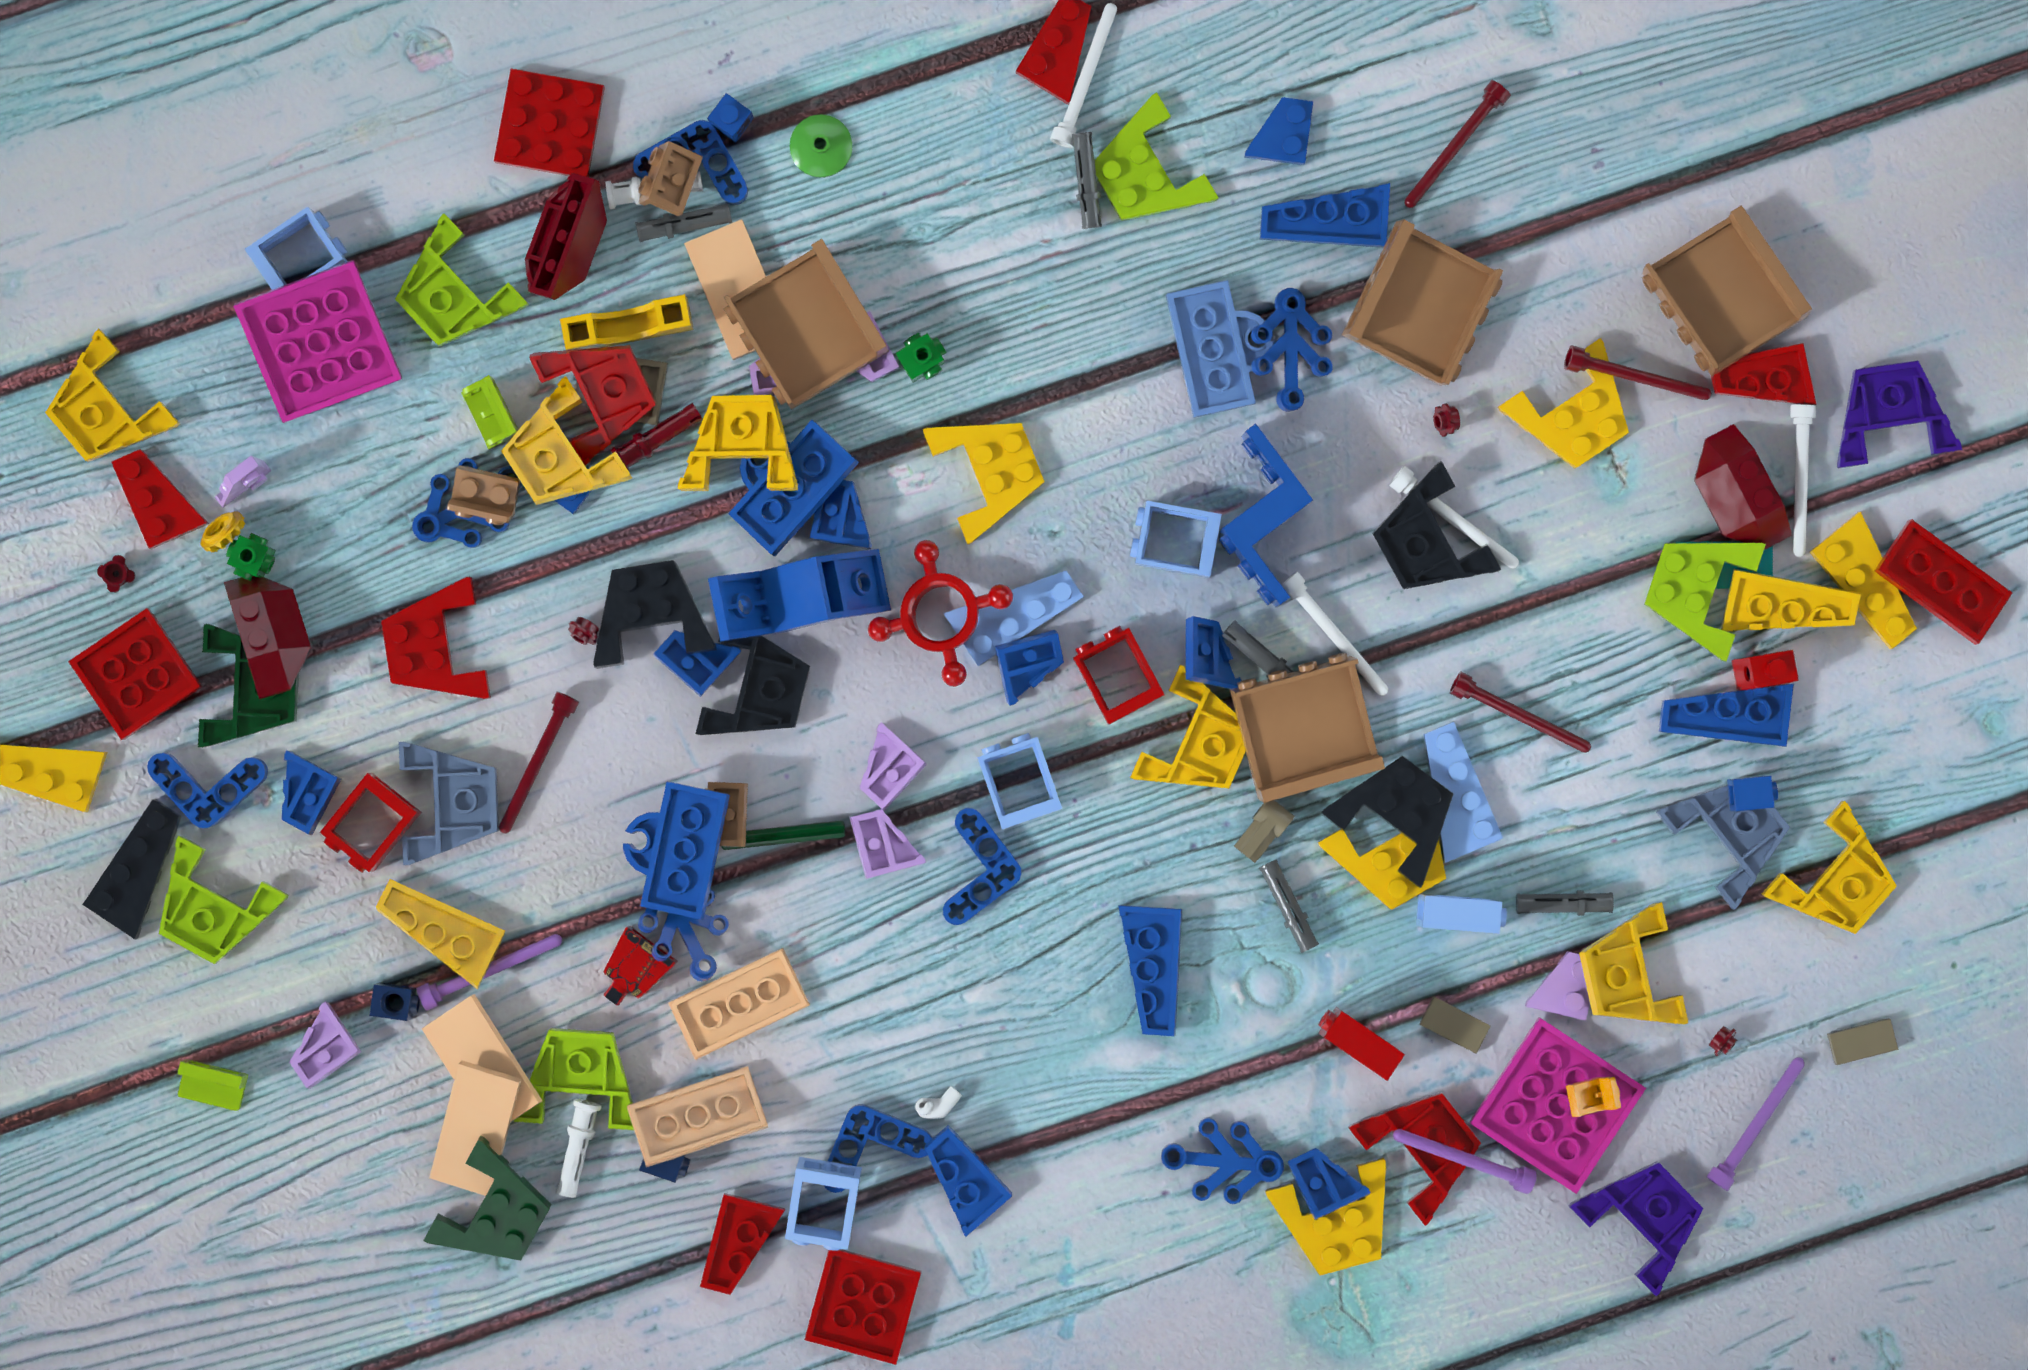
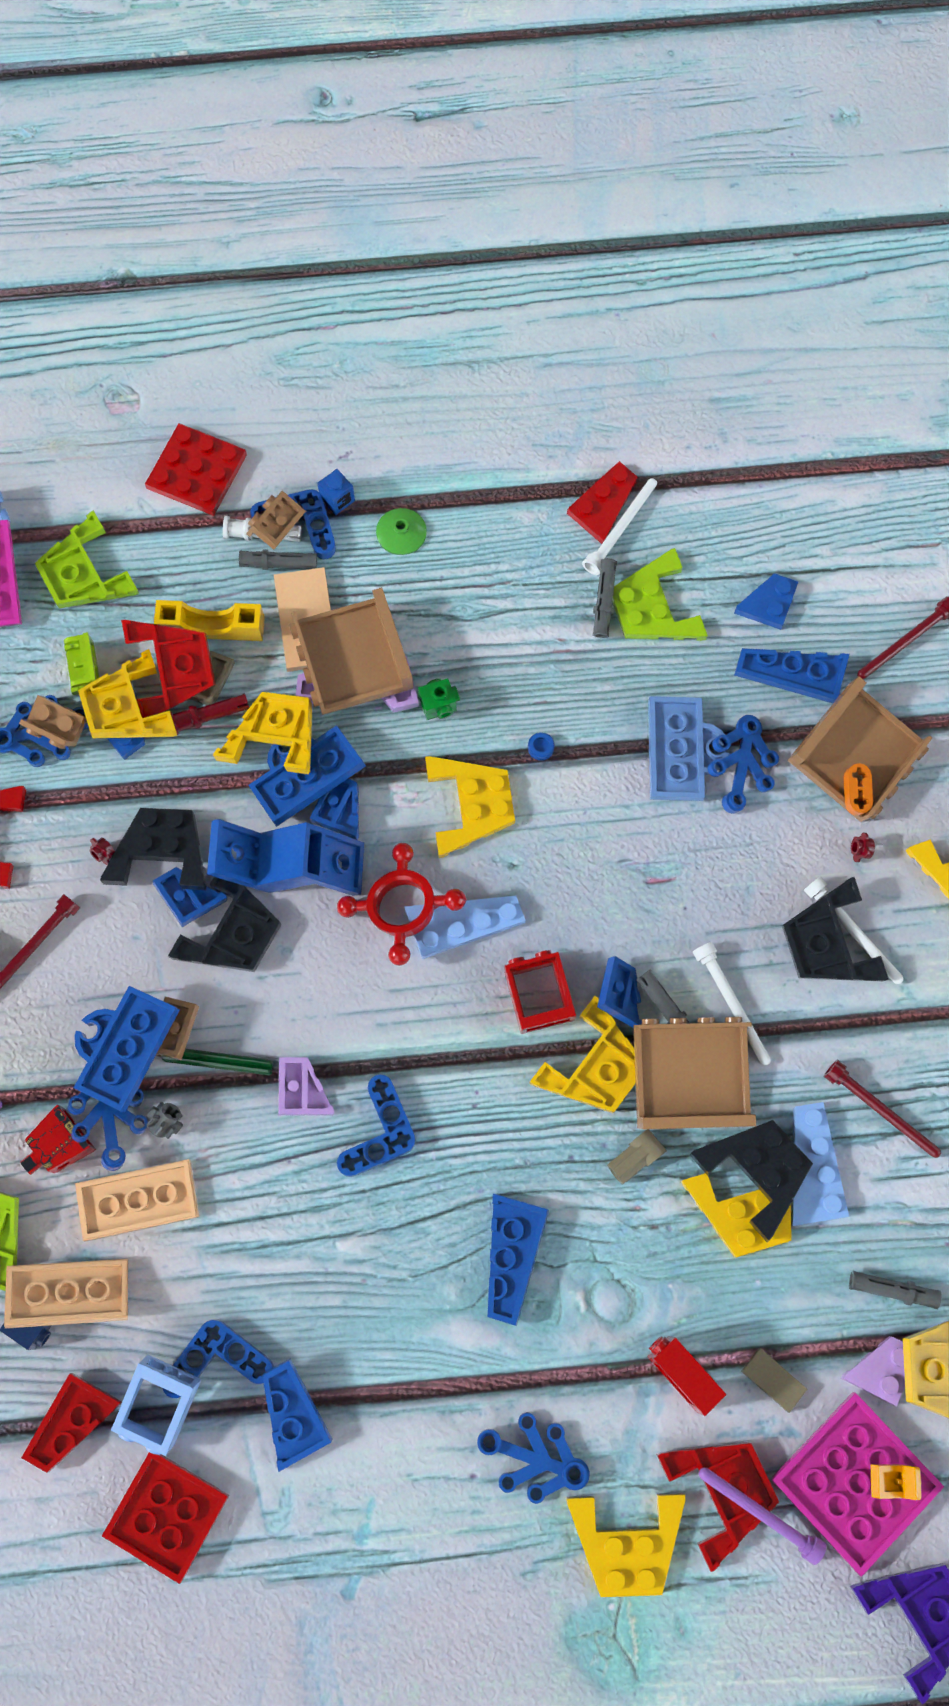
camera: 15 degrees right, 15 degrees down
(566, 238) = (184, 547): dark red wedge -> none
(745, 914) = (164, 1120): none -> dark grey gear
(889, 768) = (324, 1025): lavender wing -> none
(938, 1107) = (286, 1340): white arm -> none
(995, 752) = (433, 1091): light blue window -> none
(1027, 661) = (464, 963): blue wing -> none
(1053, 382) = (541, 746): none -> blue tile
(1208, 545) = (624, 870): light blue window -> none
(1264, 516) = (694, 887): blue bracket -> none
(1304, 939) = (647, 1242): dark grey pin -> none
(1324, 1184) = (623, 1505): blue wing -> none
(1436, 350) = (855, 788): none -> orange beam
(1460, 913) = (800, 1274): light blue window -> none

